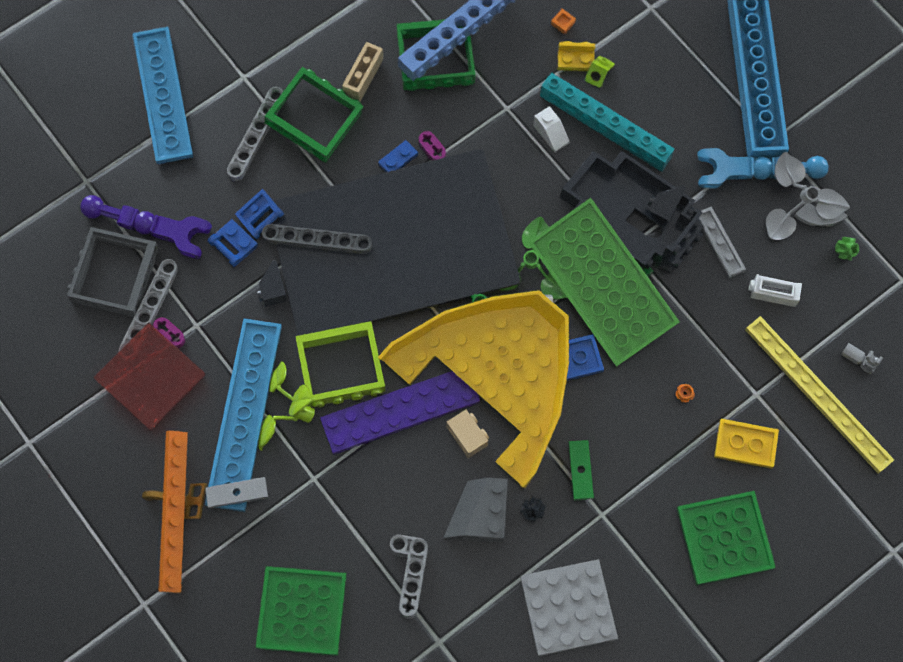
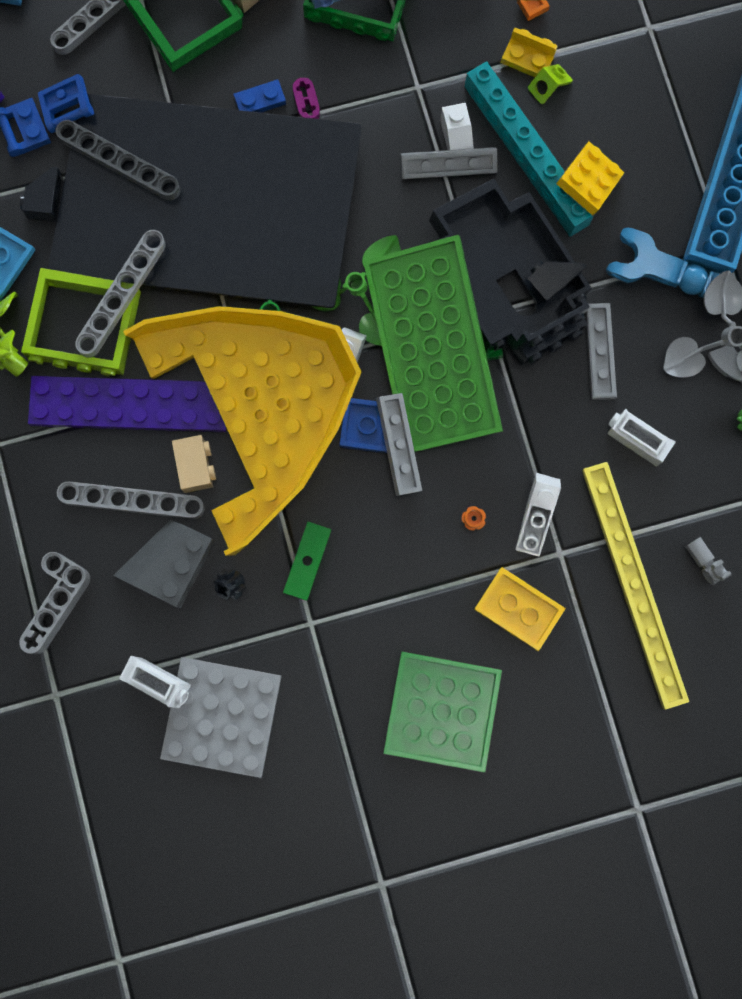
camera: 20 degrees right, 10 degrees up
(363, 331) = (116, 291): none -> light grey beam
(433, 480) = (131, 496): none -> light grey beam
(512, 599) = (155, 682): none -> white window
(554, 152) = (449, 163): none -> light grey tile
(610, 360) = (399, 444): none -> light grey plate
(660, 125) = (590, 178): none -> yellow plate
(729, 371) = (538, 514): none -> white slope

